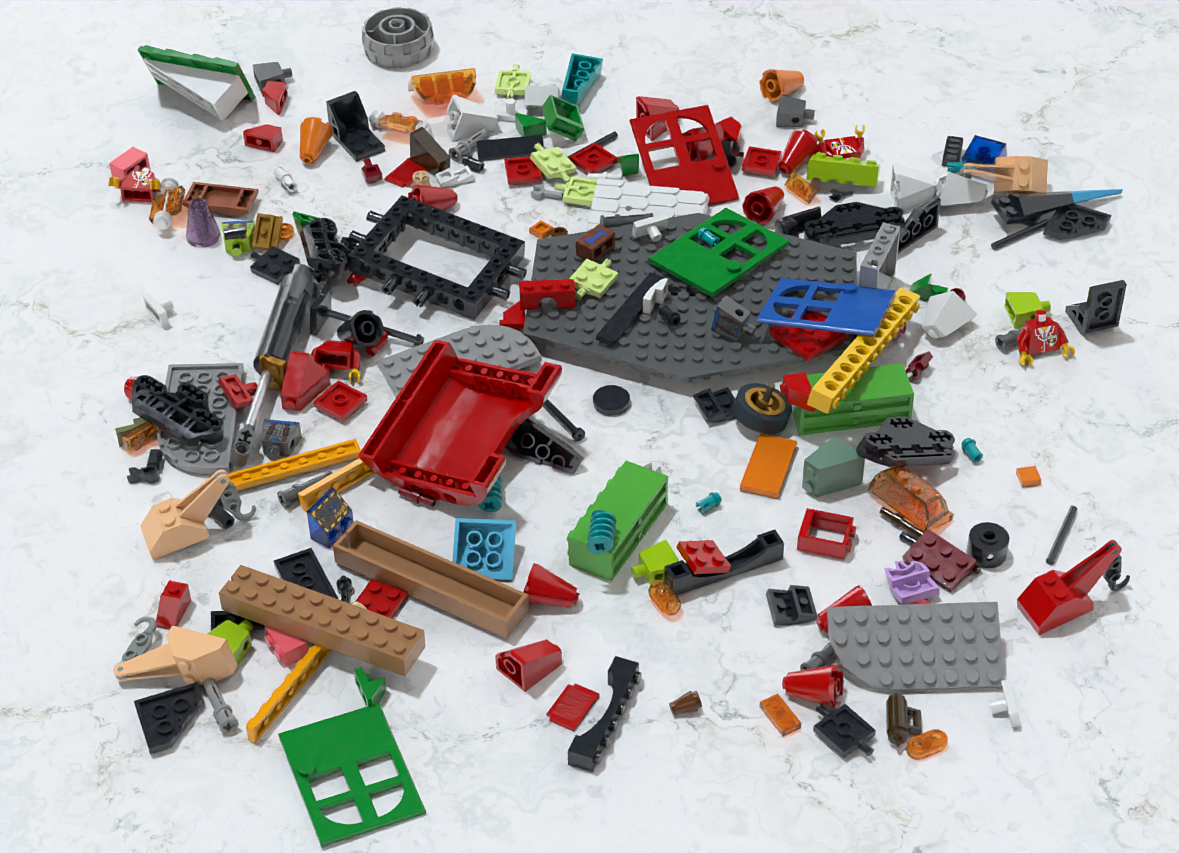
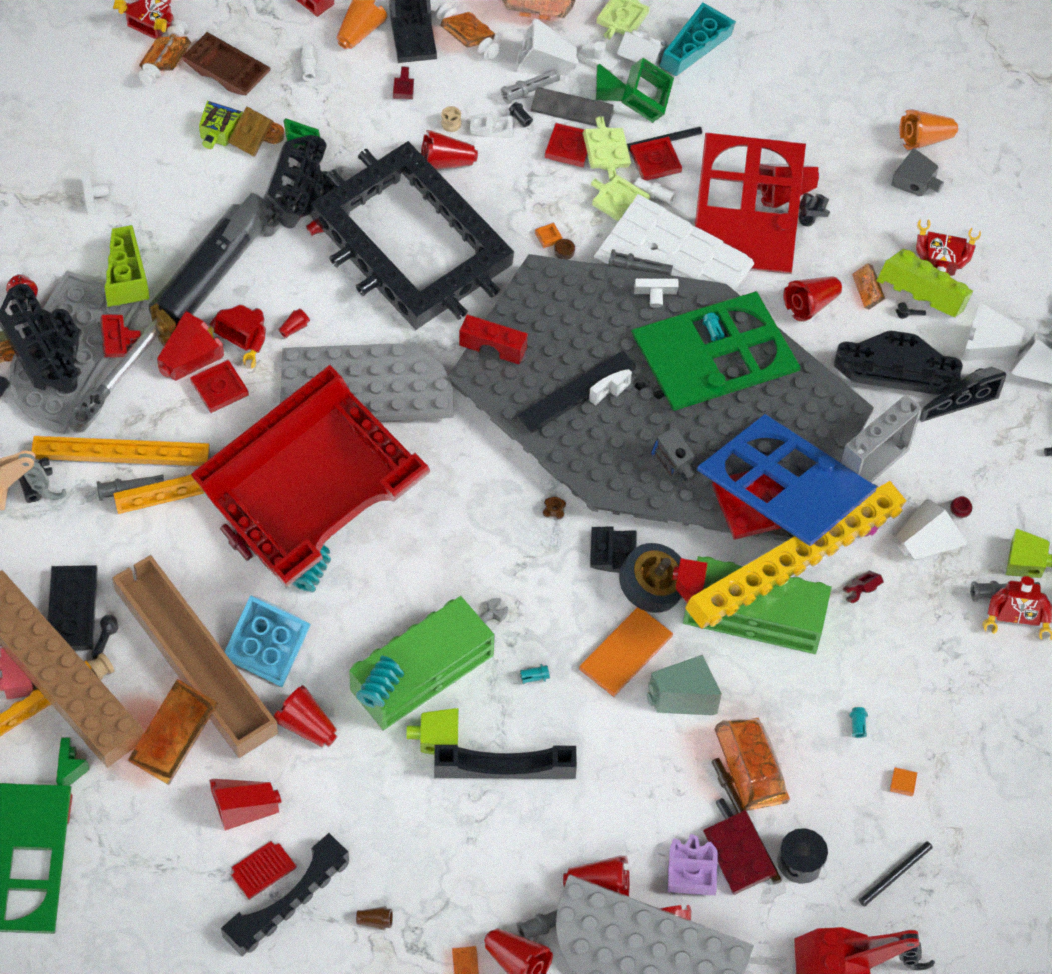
camera: 20 degrees right, 15 degrees up
(201, 224) = (185, 97): clear purple cone -> none
(221, 344) = (125, 272): none -> lime wedge
(234, 233) = (216, 125): black pin -> none
(273, 264) = (240, 176): black plate -> none
(280, 438) = (133, 411): dark grey torso -> none
(321, 310) = (255, 260): black tile -> none
(329, 518) = (130, 538): slope -> none
(361, 329) = (279, 308): black cone -> none
(382, 598) = (135, 659): red plate -> none
(403, 173) = (447, 95): red window -> none
(428, 152) = (474, 85): dark brown slope -> none
(449, 628) = (173, 731): none -> clear orange windscreen
(514, 318) = (448, 352): red slope -> none
(540, 192) = (577, 184): light grey bar -> none
(541, 445) = (399, 532): black wedge -> none
(577, 433) = (443, 527): black bar -> none
(593, 278) = (556, 334): yellowish green plate -> none
(595, 243) = (582, 288): copper brick -> none
(611, 400) = (503, 496): black tile -> none
(629, 164) = (690, 179): green slope -> none
(650, 106) = (758, 120): red slope -> none
(655, 393) = (555, 502): none -> reddish brown plate
(664, 599) = (421, 780): clear orange plate -> none
(672, 318) = (613, 423): black pin -> none
(703, 557) = (484, 747): red plate -> none
(731, 129) = (830, 177): red slope -> none
(761, 161) = (844, 231): red plate -> none
(791, 605) = (551, 841): black slope -> none
(796, 222) = (833, 335): black piece -> none
(798, 151) = (888, 237): red cone -> none
(830, 522) = (628, 742): red window -> none
(907, 443) = (780, 690): black connector -> none
(925, 289) = (930, 484): green slope -> none

